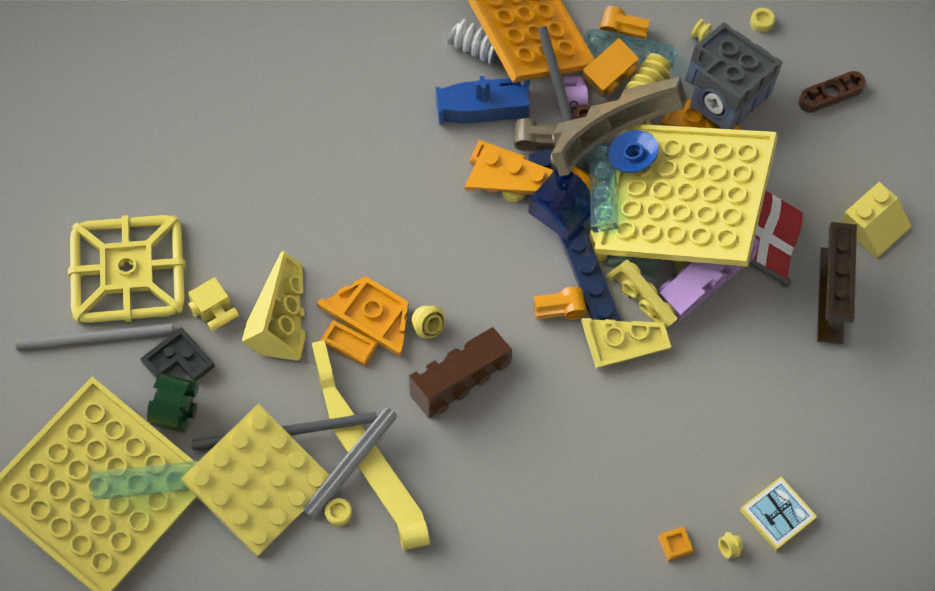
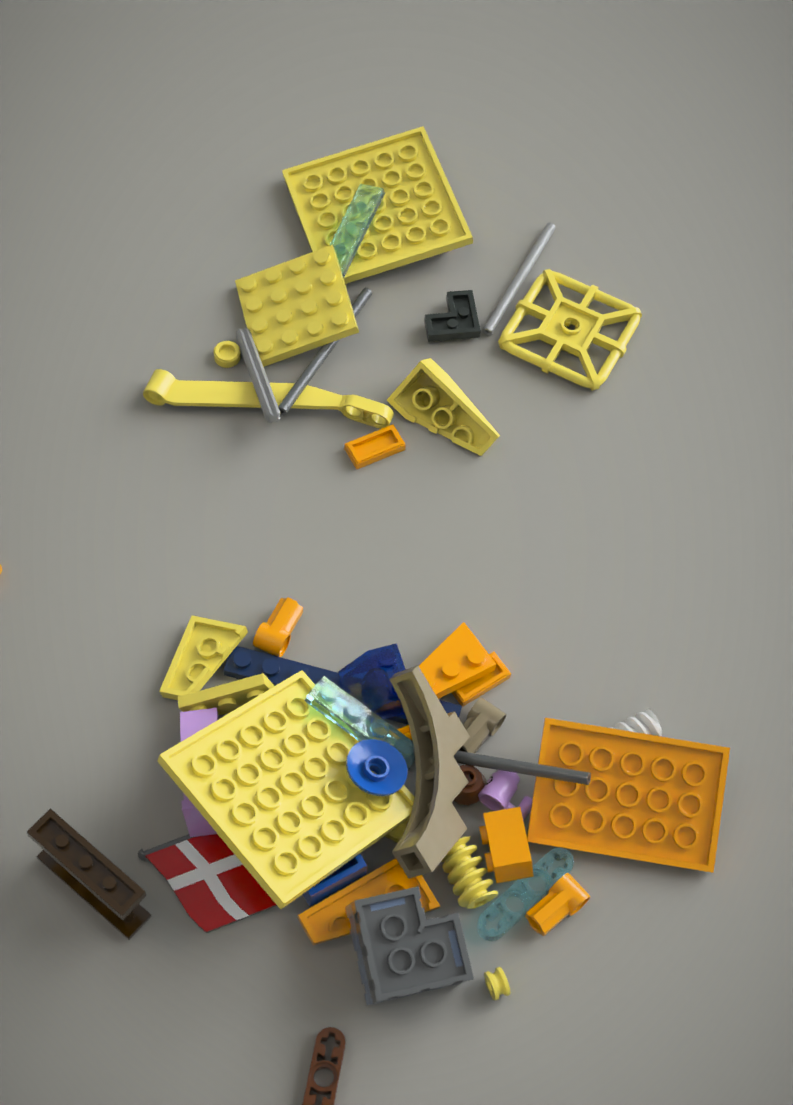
camera: 120 degrees right, 5 degrees down
(173, 403) = (409, 283): dark green brick -> none
(211, 301) = (490, 364): light yellow brick -> none
(370, 311) = (388, 476): light orange wing -> none
(428, 321) = (345, 509): light yellow cone -> none
(459, 372) = (275, 499): reddish brown wedge -> none
(482, 101) = (552, 697): blue piece -> none
(762, 20) = (469, 1071): light yellow tile -> none
(878, 219) = (134, 995): light yellow slope -> none

